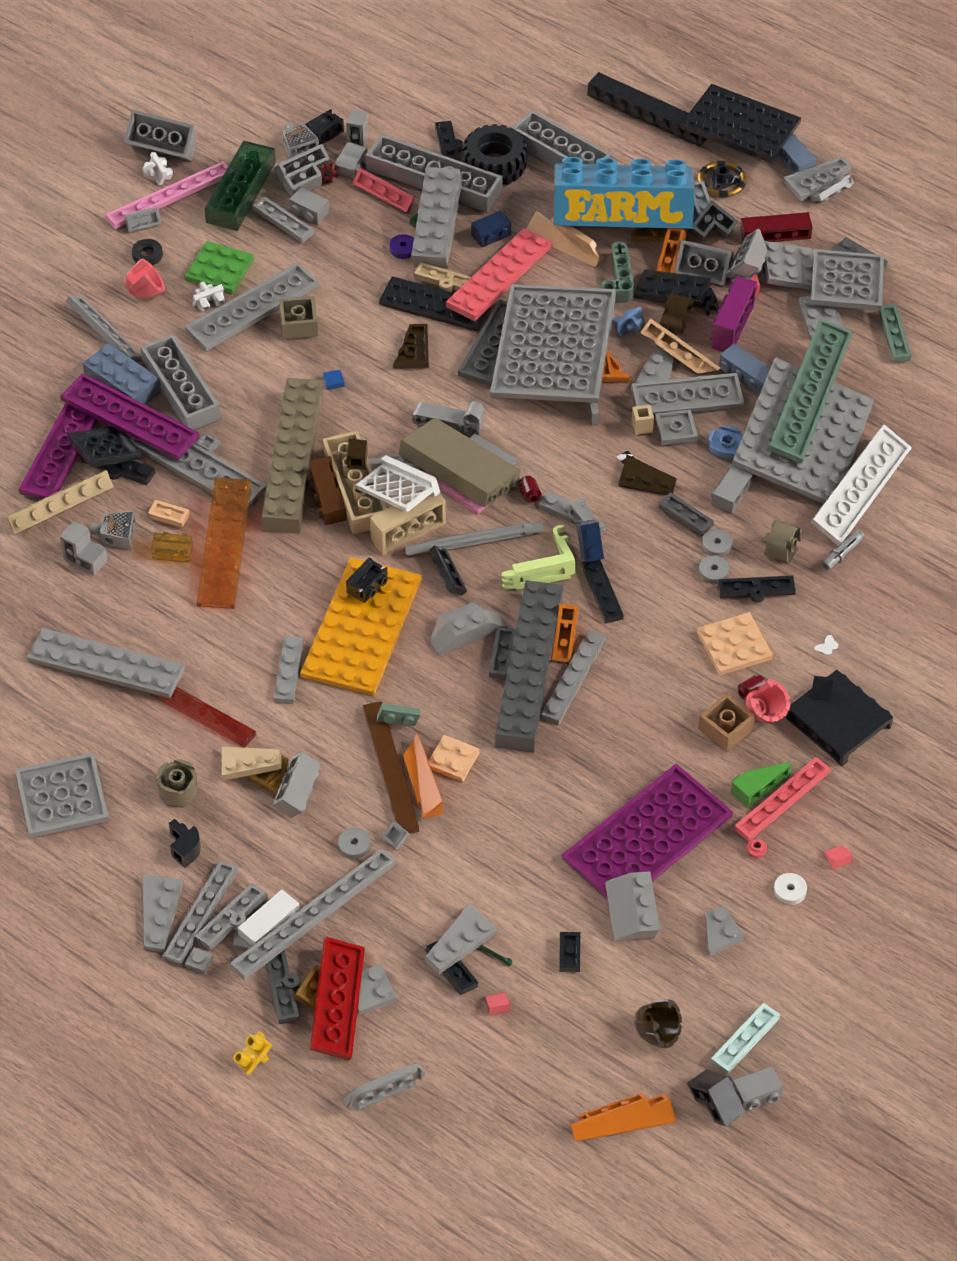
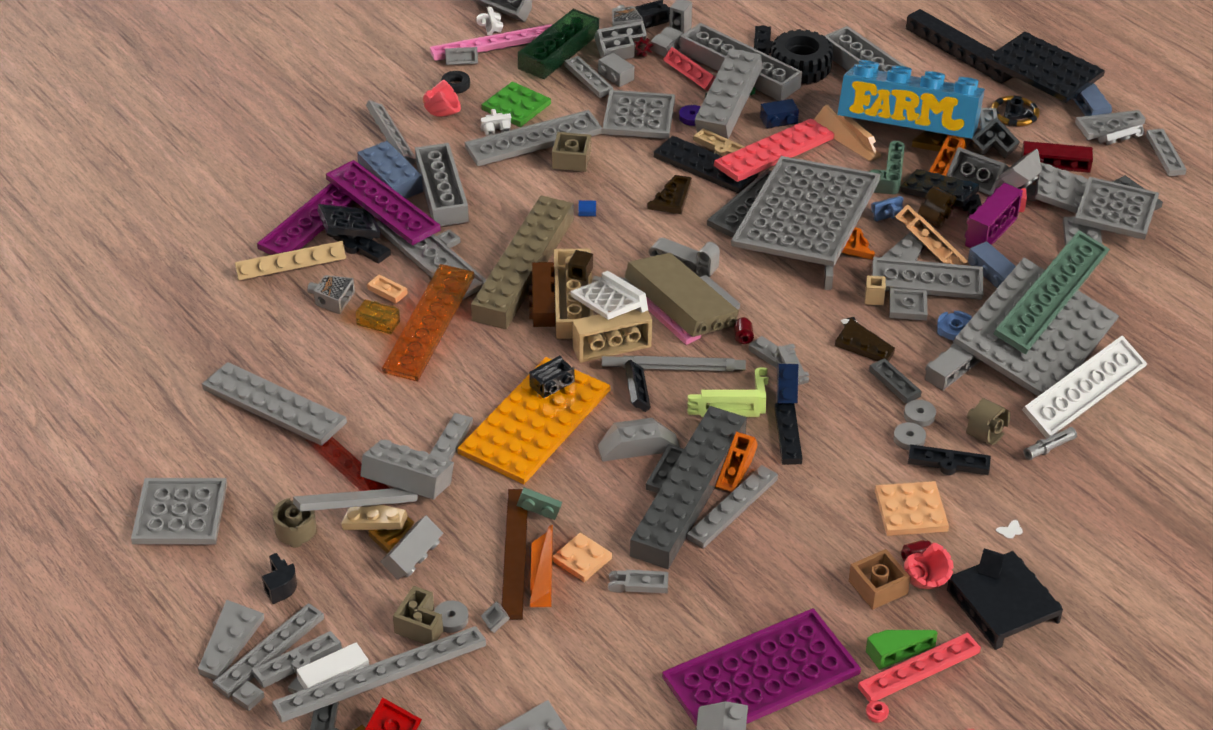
camera: 15 degrees right, 10 degrees down
(80, 550) = (290, 301): light grey brick -> none
(227, 748) = (353, 499): none -> light grey tile
(263, 706) = (407, 469): none -> light grey brick
(326, 855) = (416, 617): none -> dark tan brick
(350, 256) = (639, 114): none -> light grey plate
(513, 771) = (638, 581): none -> light grey hinge
(878, 201) = (1166, 152): none -> light grey plate
(894, 333) = (1154, 263): sand green plate -> none

